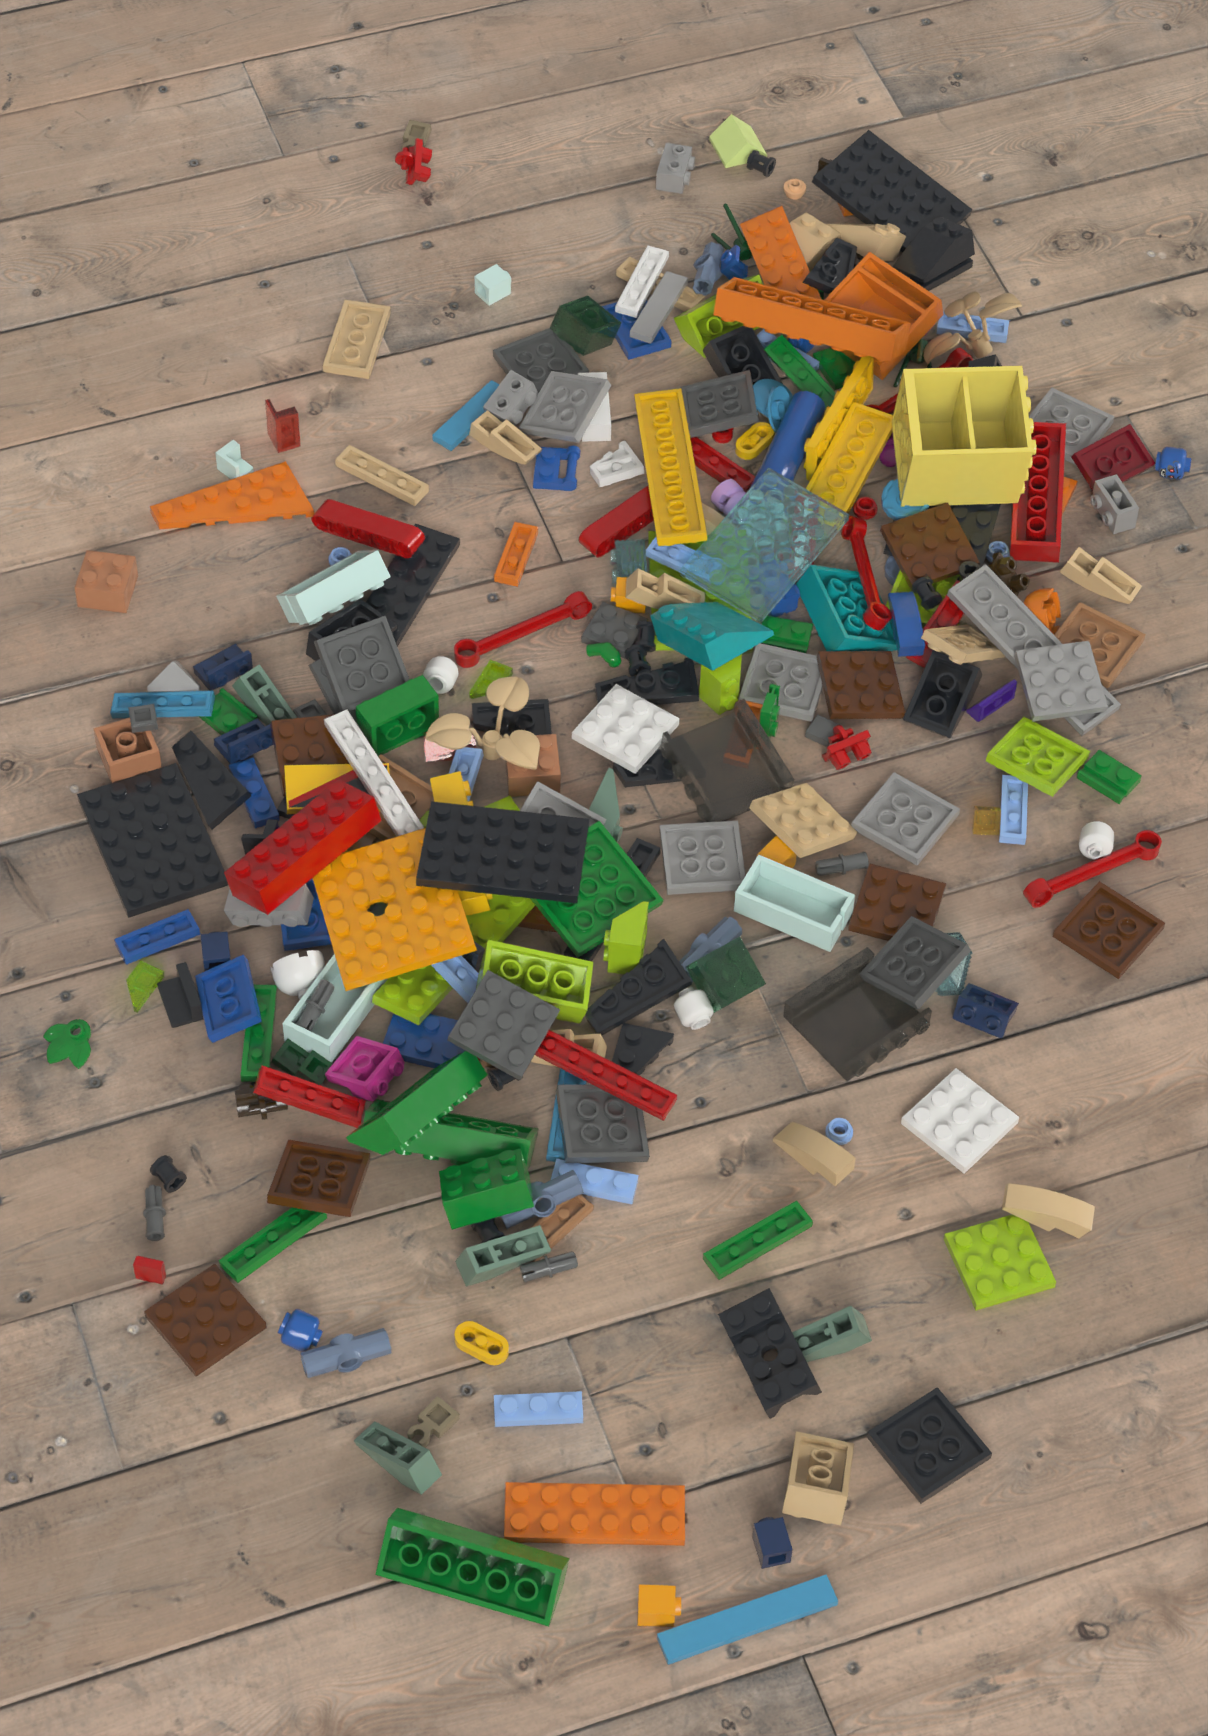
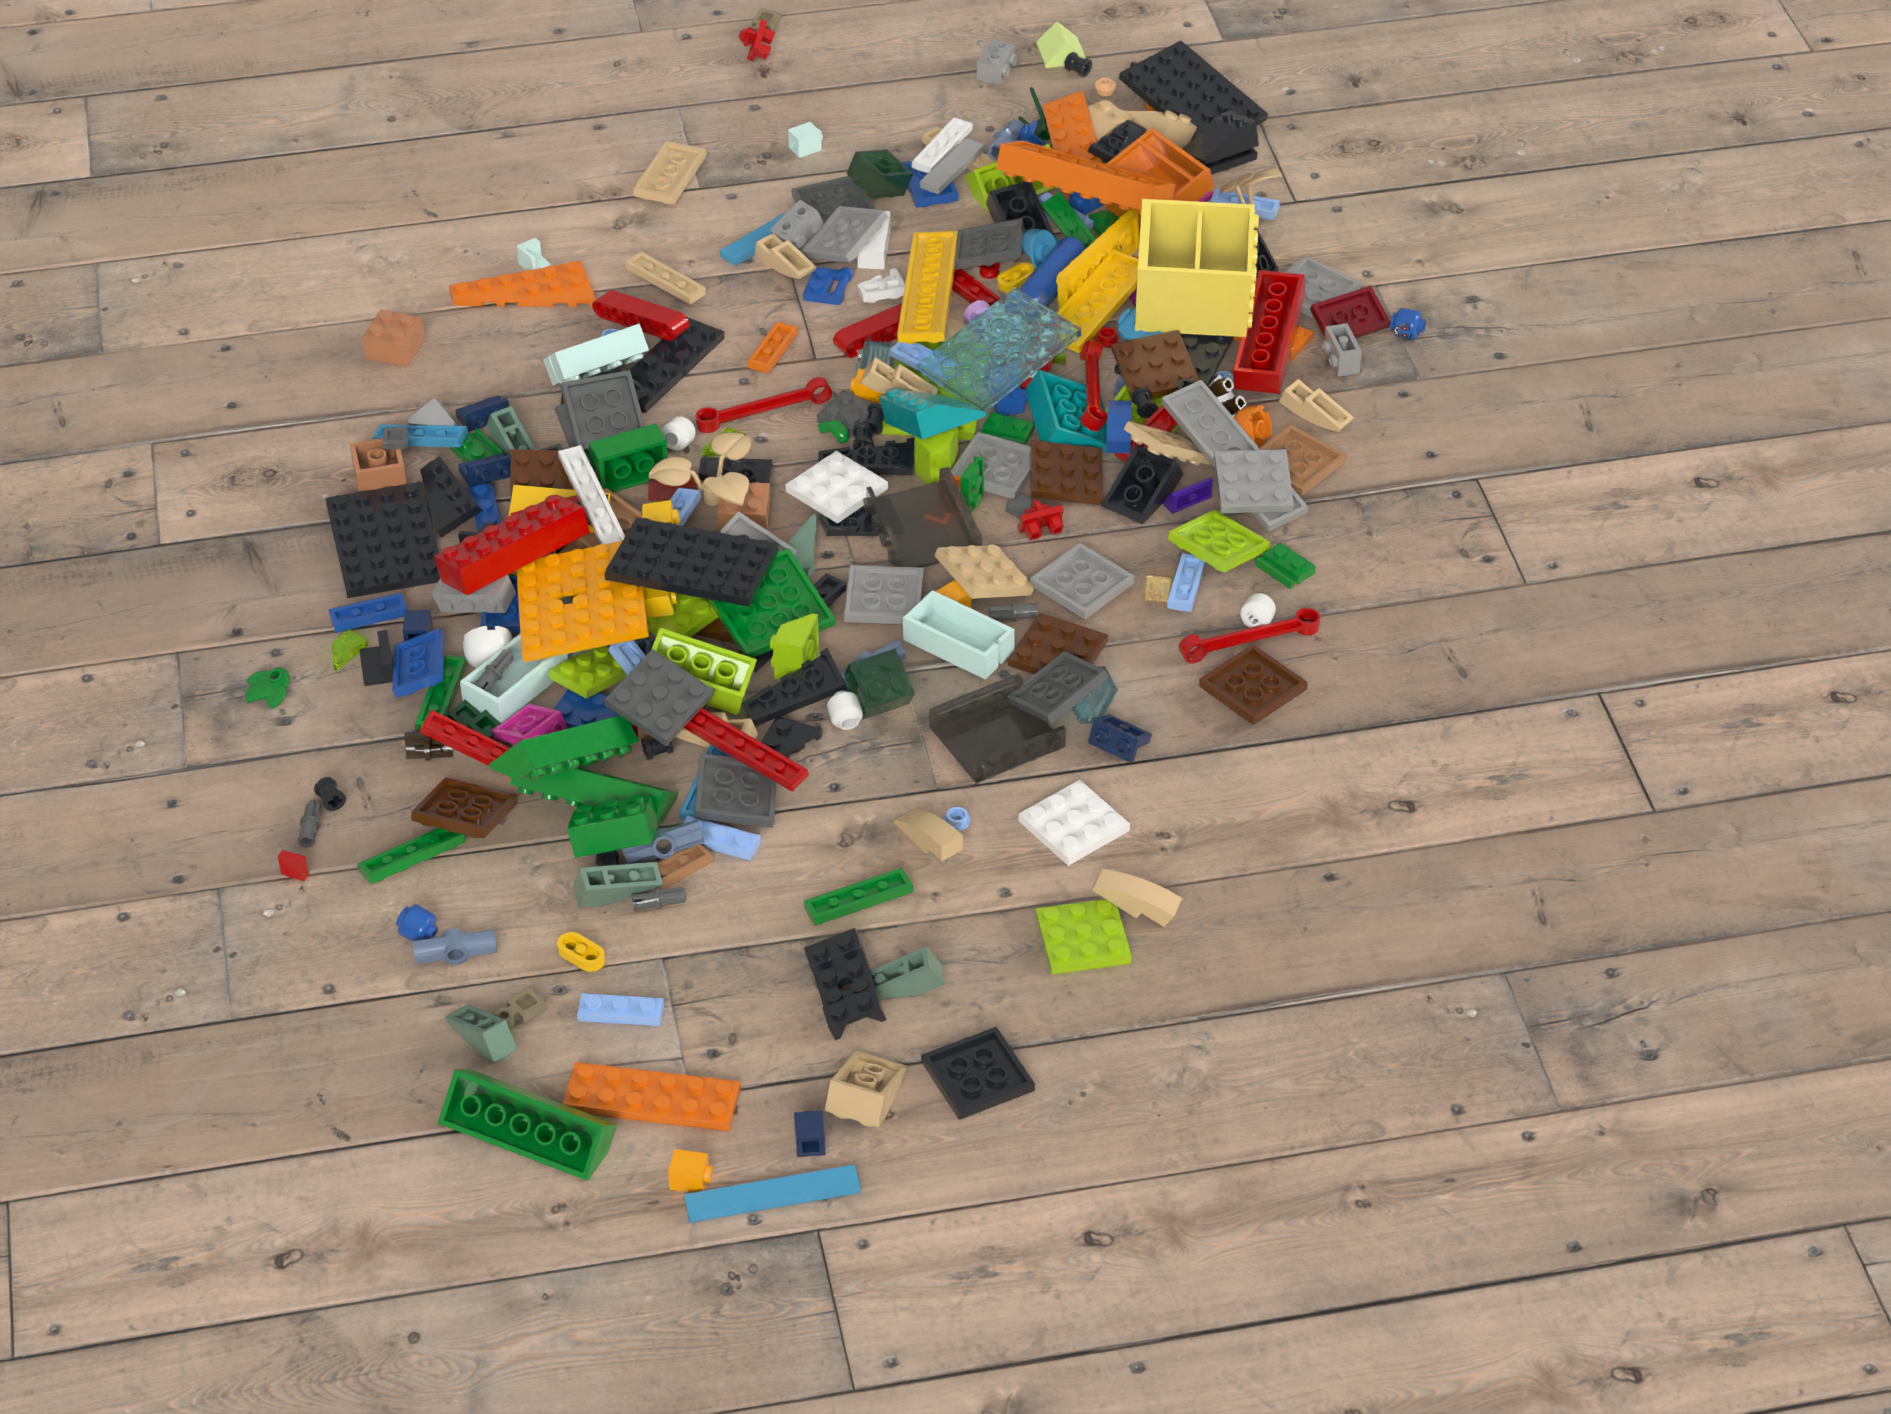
camera: 10 degrees right, 10 degrees down
(205, 1319) = (334, 910): reddish brown plate -> none
(282, 427) = (583, 232): clear red panel -> none

